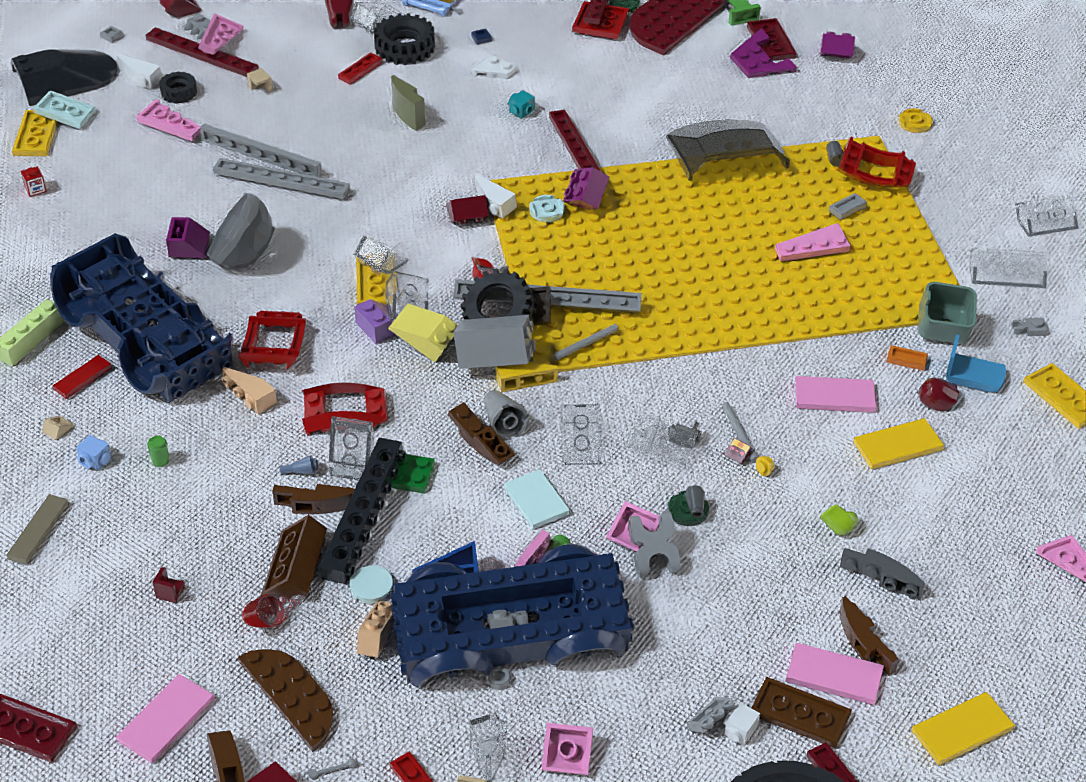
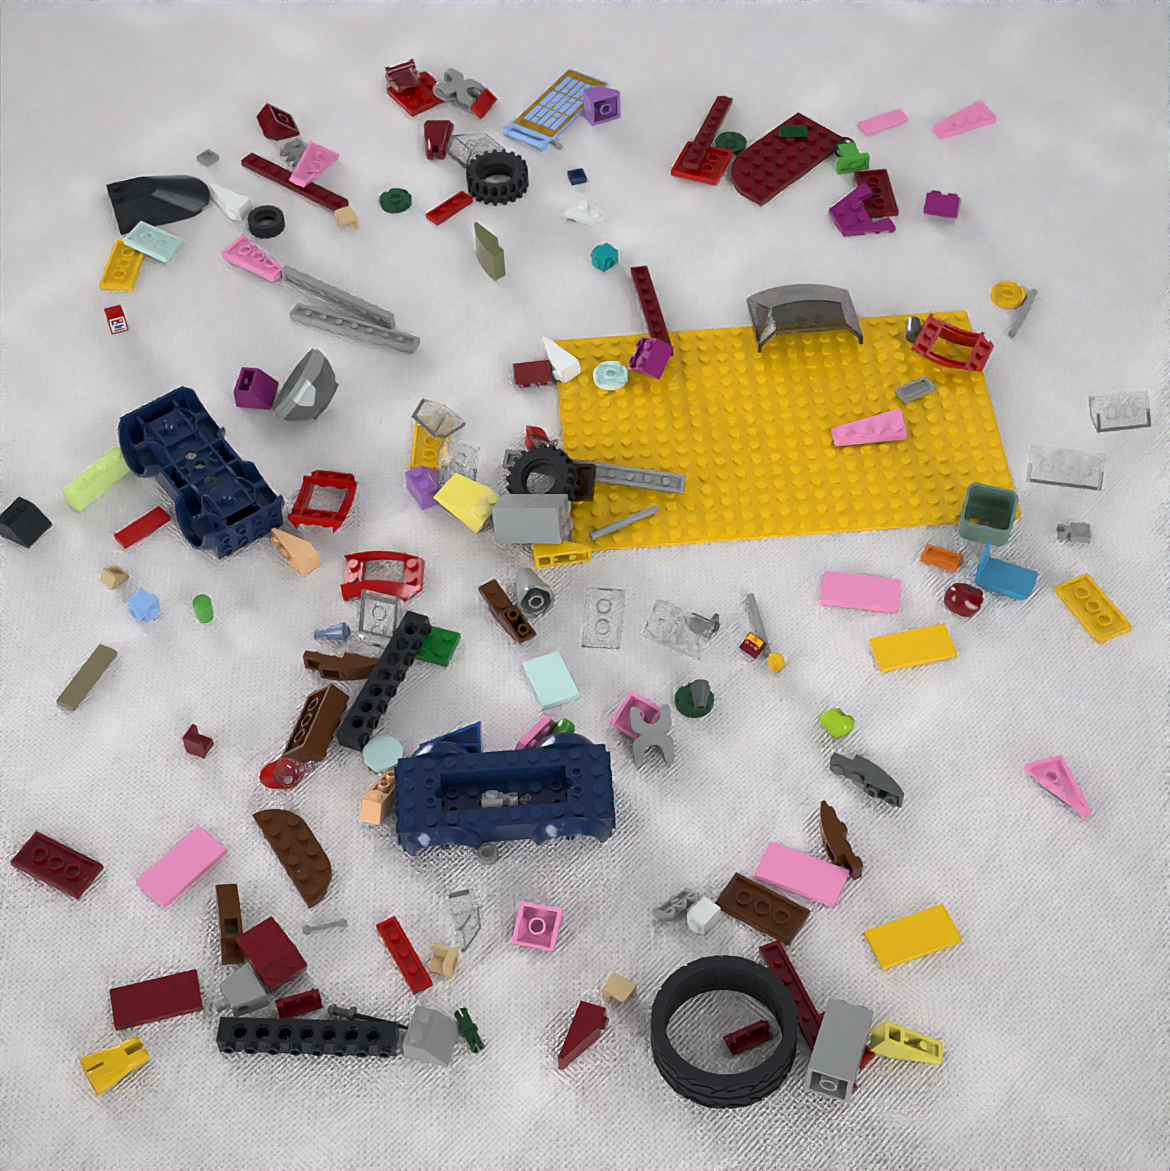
camera: 10 degrees right, 5 degrees up
(305, 64) = (395, 200): none -> clear green tile
(933, 135) = (1022, 313): none -> light grey bar

